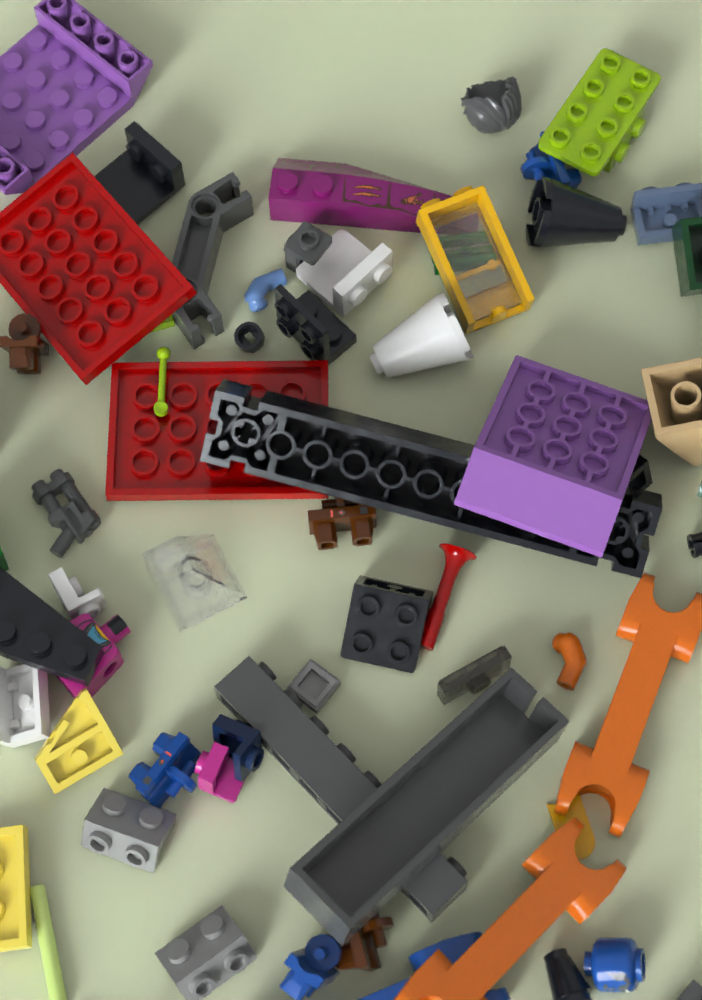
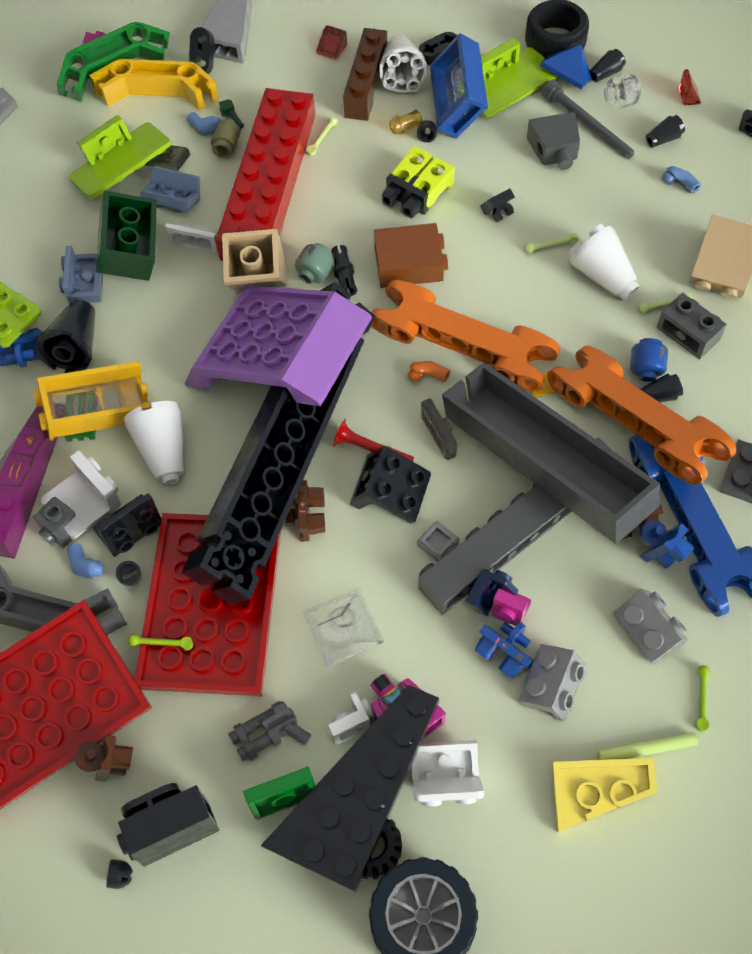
camera: 85 degrees left, 5 degrees down
(77, 744) = (484, 717): light yellow wing -> none

